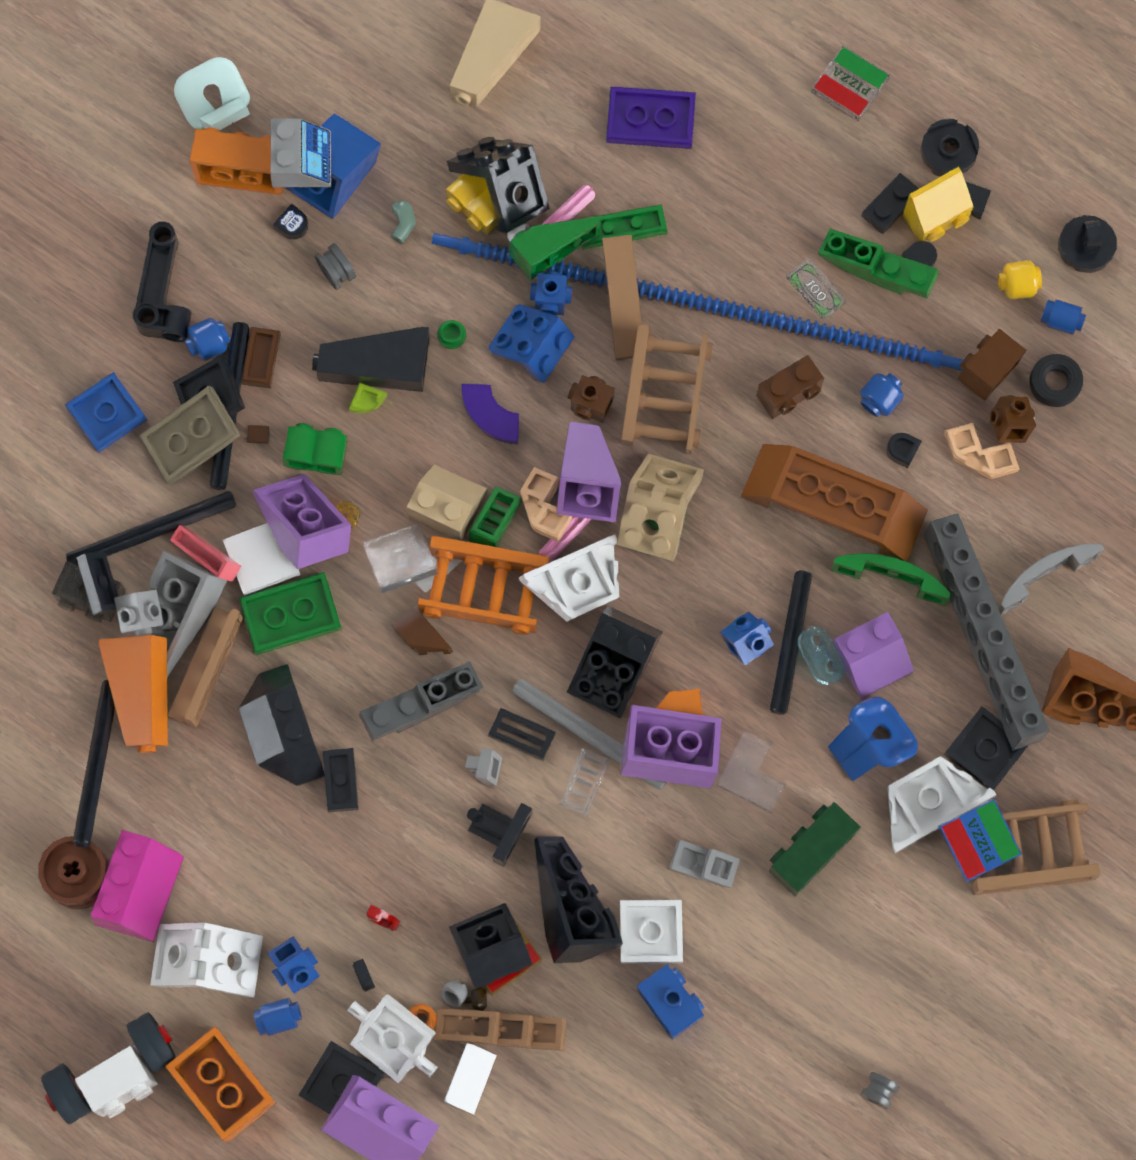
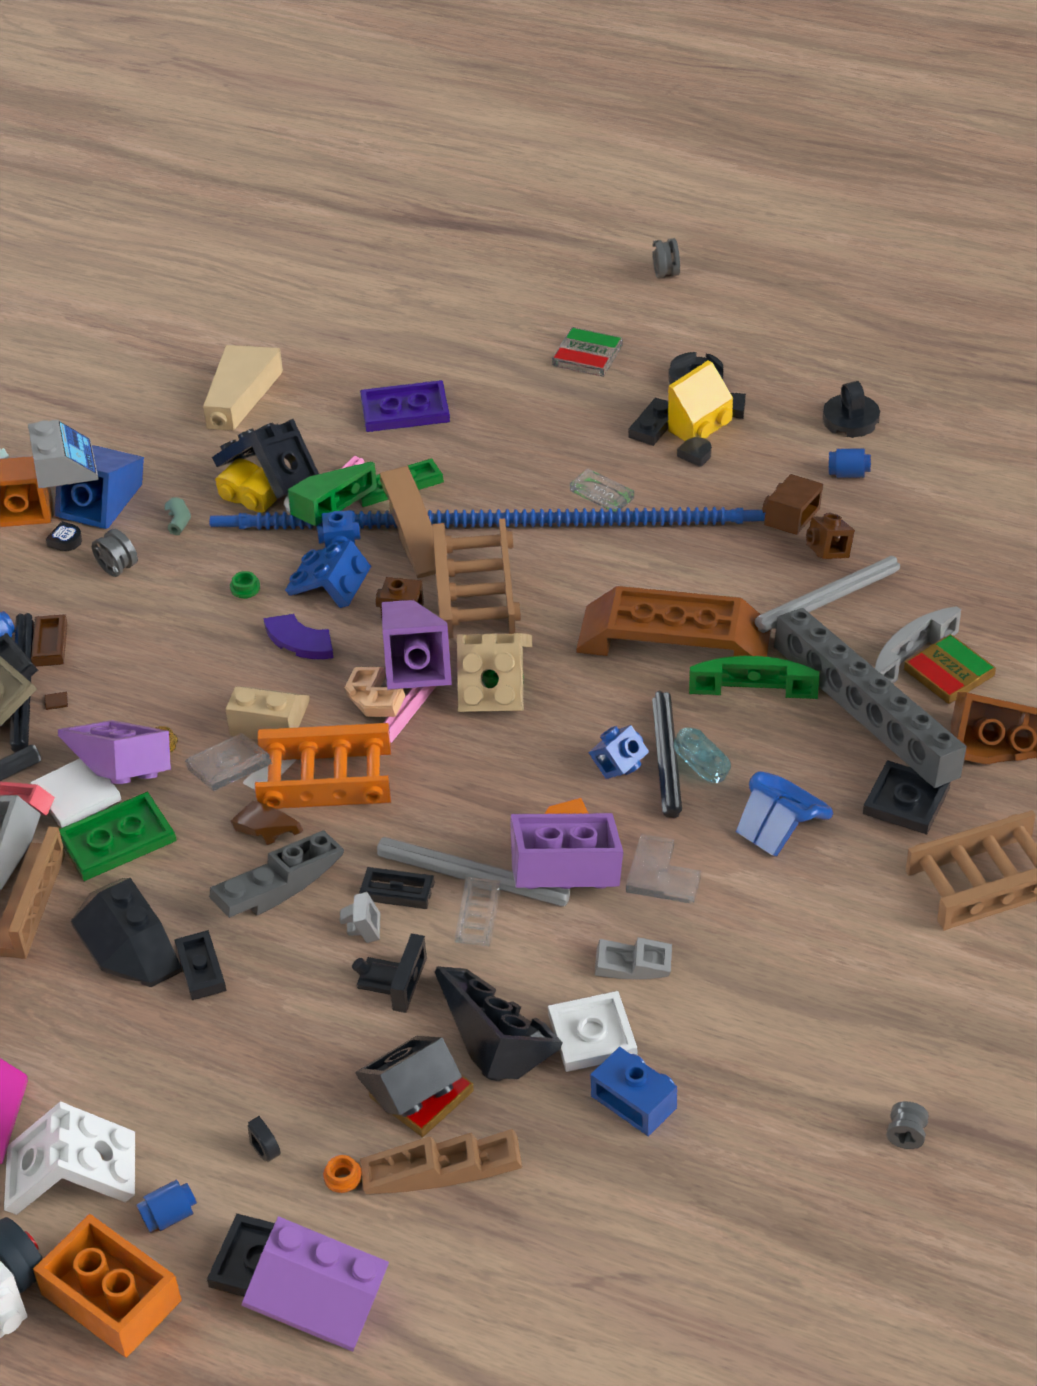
camera: 10 degrees left, 30 degrees down
(294, 965) = (177, 1144): blue brick -> none
(315, 449) = (119, 695): green brick -> none
(366, 399) = (167, 651): lime tile -> none
(376, 360) = (169, 616): black slope -> none
(382, 918) = (274, 1082): red tile -> none
(392, 1038) = (312, 1191): white plate -> none
(454, 993) = (371, 1135): light grey hinge -> none
(470, 1078) = (415, 1222): white slope -> none
(478, 999) = (405, 1135): dark brown rock -> none
(486, 535) = (319, 715): green slope -> none
(577, 580) = (422, 739): white wing -> none
(614, 661) = (481, 799): black slope -> none
(790, 386) = (599, 556): reddish brown brick -> none
(813, 848) = (751, 917): dark green brick -> none
(874, 655) = (757, 739): medium lavender slope -> none
(877, 266) = (646, 460): green slope -> none
(881, 394) = (693, 547): blue head -> none
(902, 448) = (729, 584): black tile -> none
(930, 799) = (864, 852): white wing -> none
(980, 840) = (930, 862): tile -> none
(988, 462) = (794, 576): light nougat tile -> none
(990, 490) = (830, 592): none -> light grey axle
(1020, 279) = (797, 444): yellow head -> none
(1060, 363) = (862, 497): black tyre -> none
(1074, 604) = (949, 668): none -> tile

